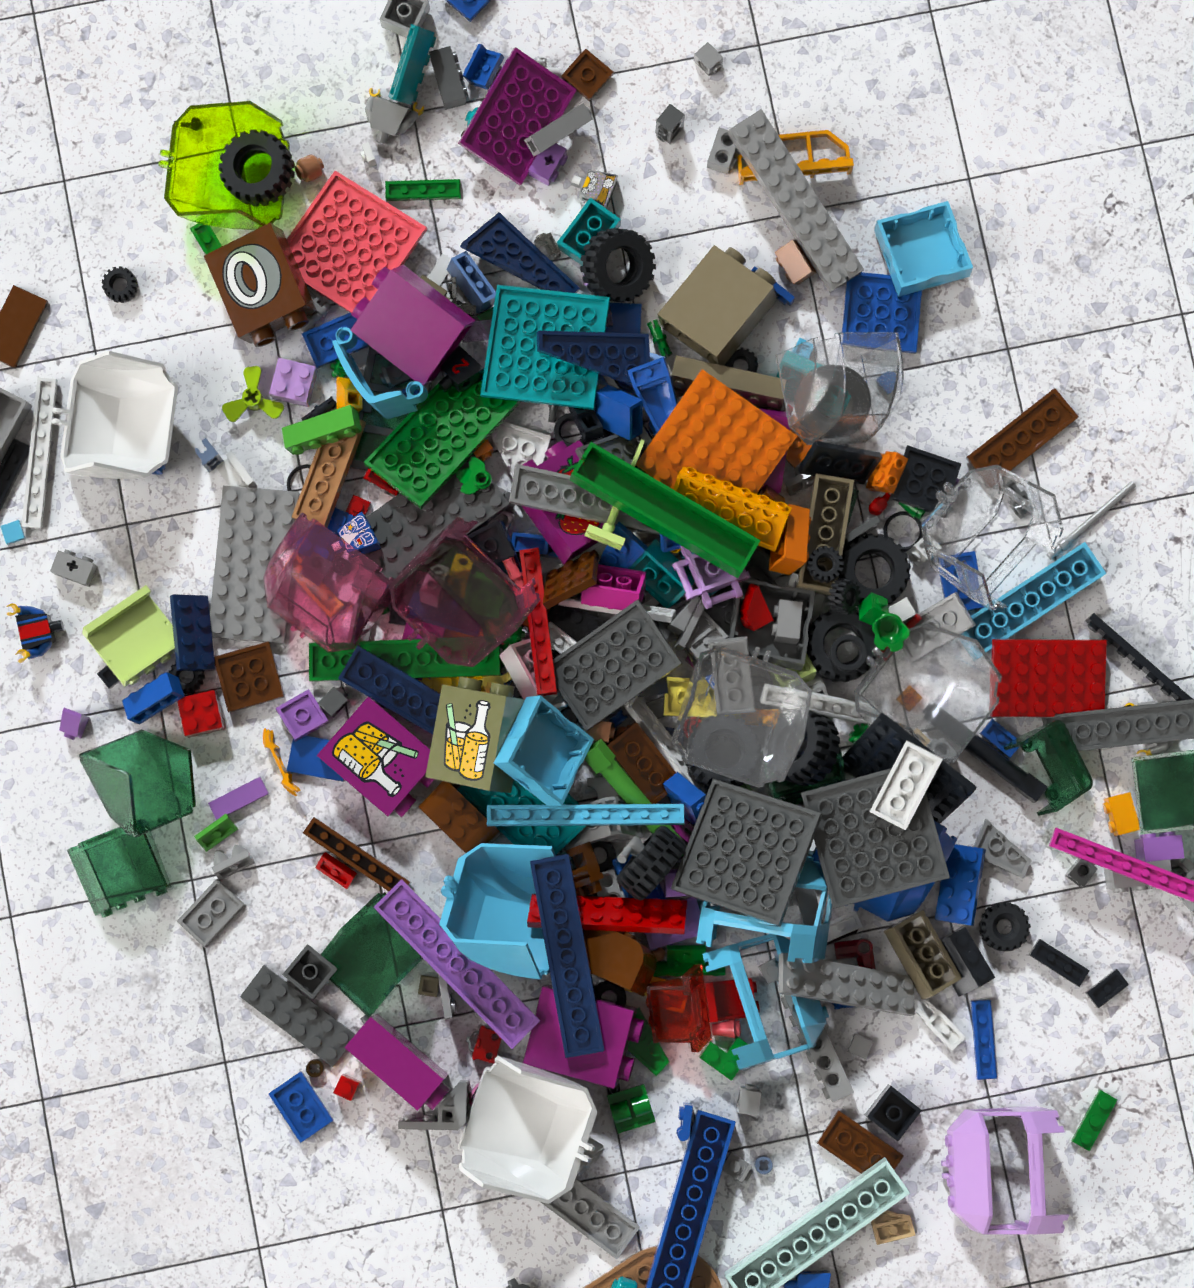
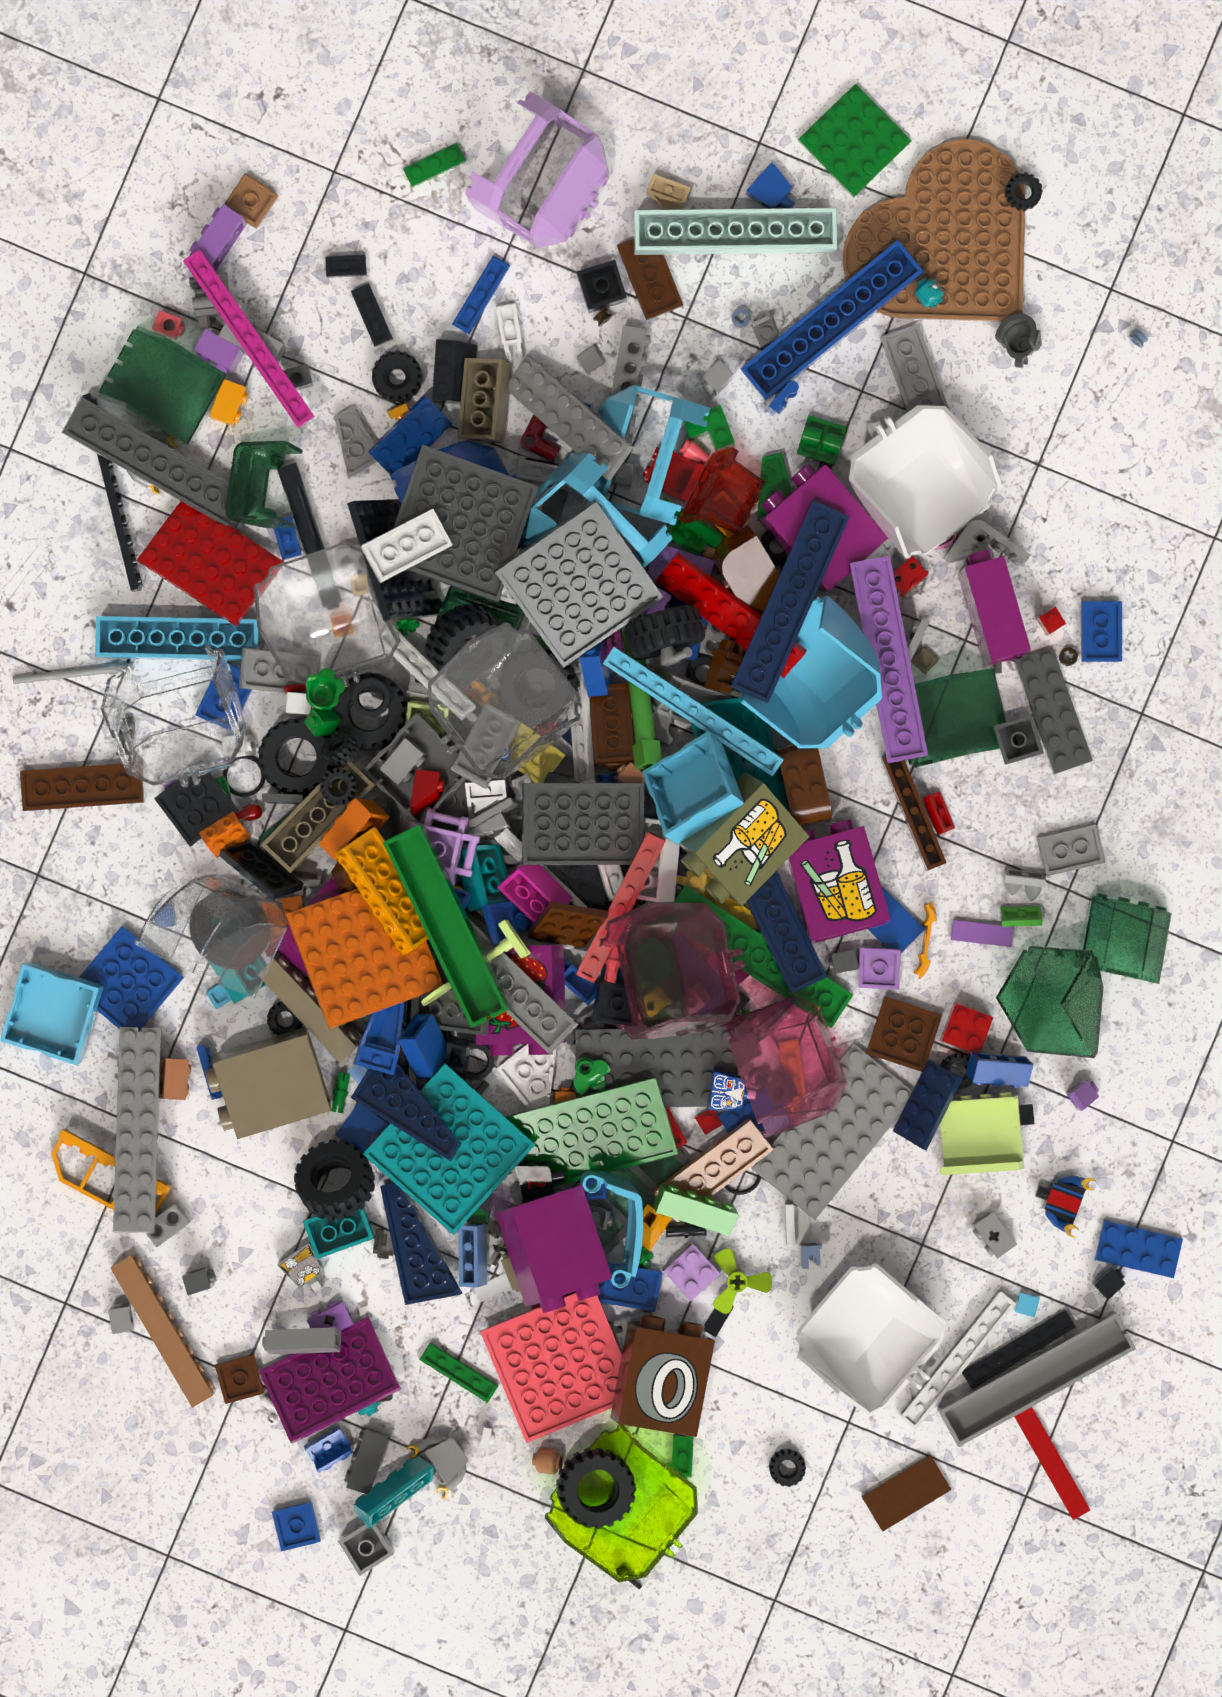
camera: 150 degrees left, 5 degrees up
(250, 357) = (715, 1322): none -> black sticker
(670, 71) = (163, 1330): none -> medium nougat brick
(683, 669) = (516, 786): none -> white panel
(874, 1088) = (602, 317): none -> dark brown bush
(984, 899) = (398, 411): none -> light orange plate

